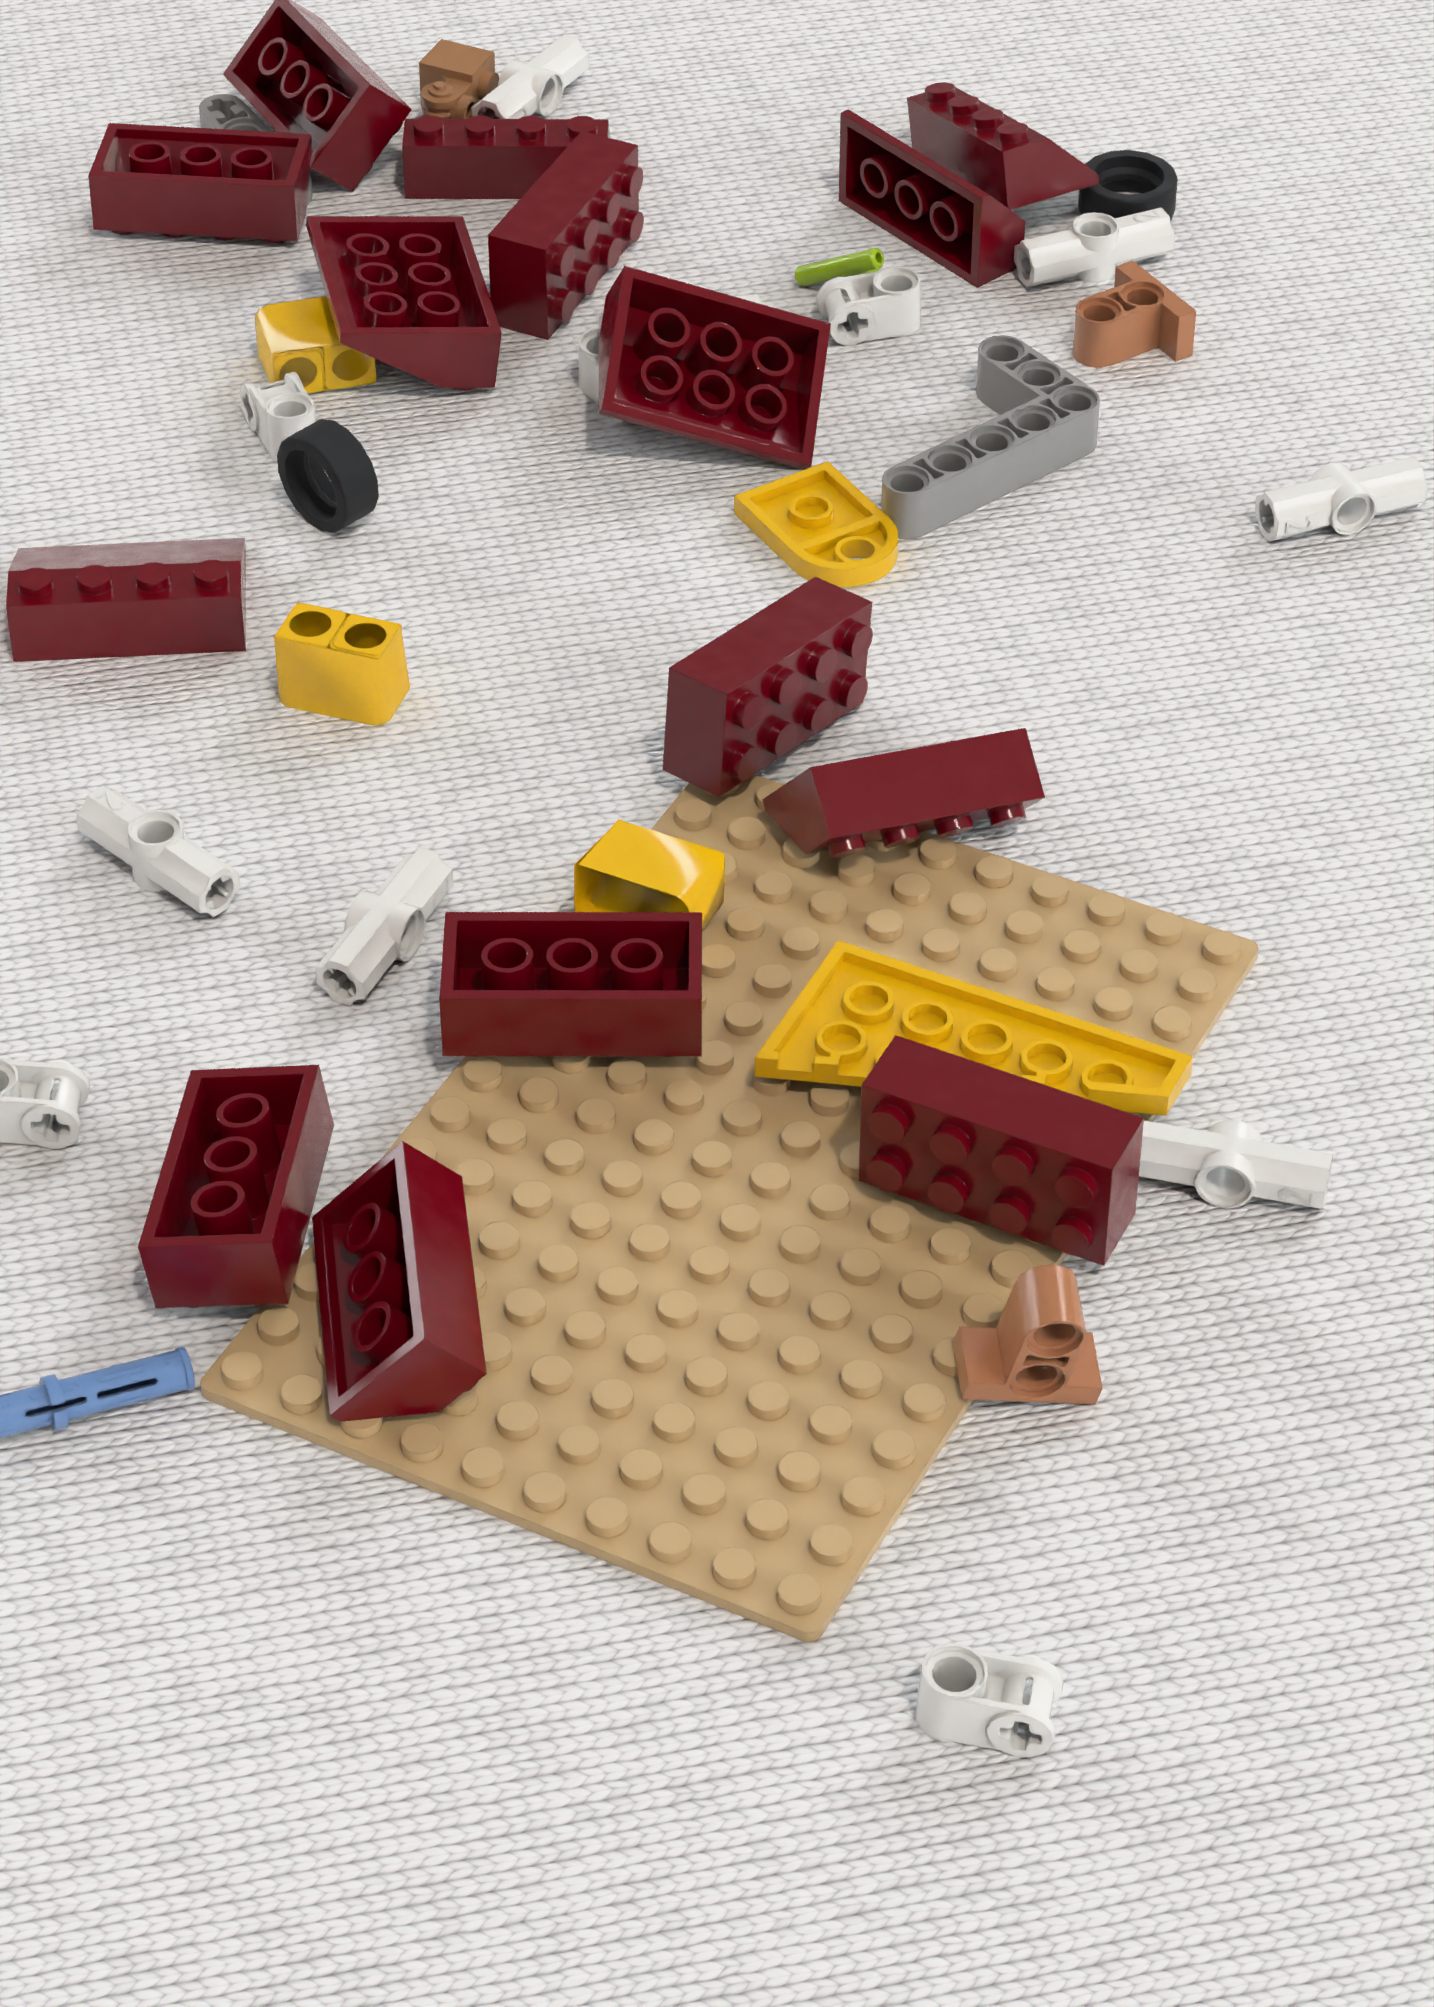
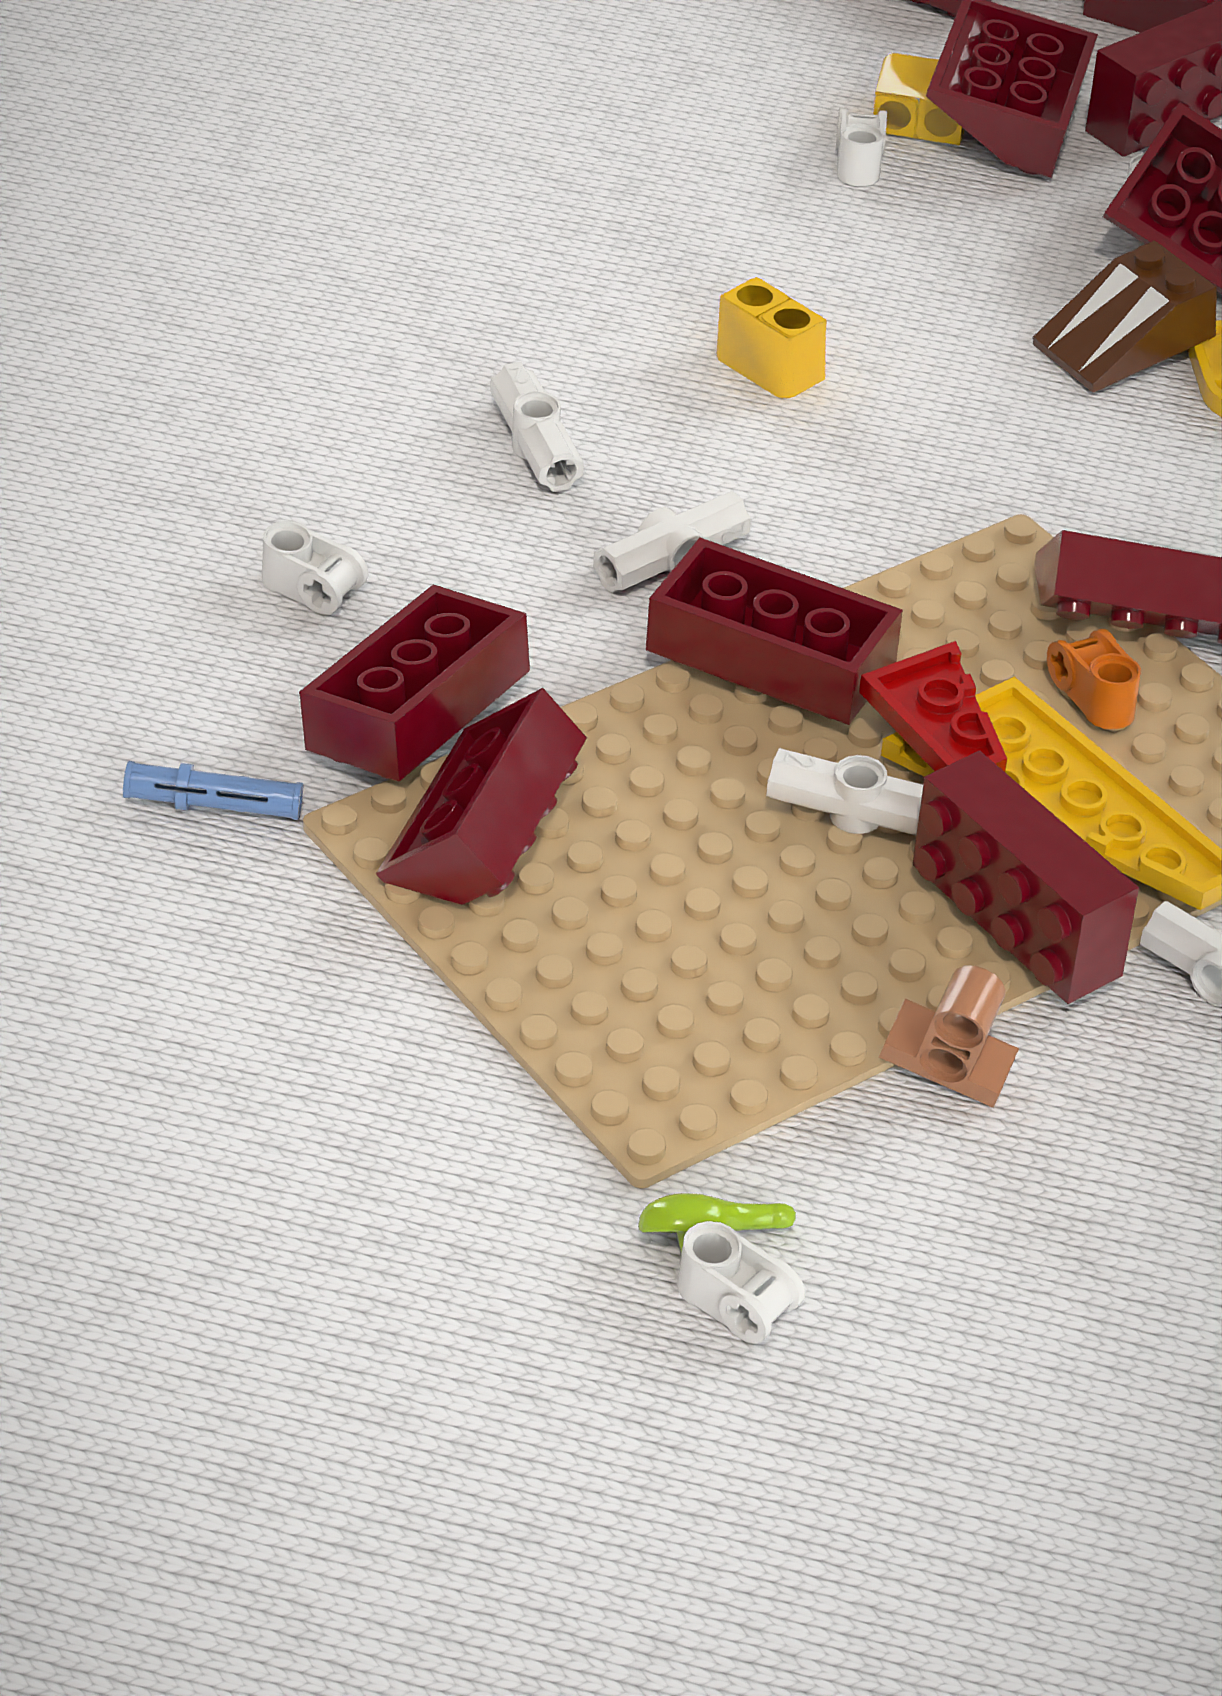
camera: 25 degrees right, 0 degrees up
(127, 599) = (645, 239): dark red slope -> none
(353, 479) = (856, 195): black tyre -> none
(648, 873) = (899, 572): yellow piece -> none
(686, 513) = (1130, 318): none -> reddish brown slope
(764, 1127) = (852, 791): none -> white piece
(766, 686) = (1092, 465): dark red brick -> none
(799, 1011) = (934, 707): none -> red wing
(903, 1645) = (684, 1210): none -> lime piece
(918, 909) = (1097, 678): none -> orange piece

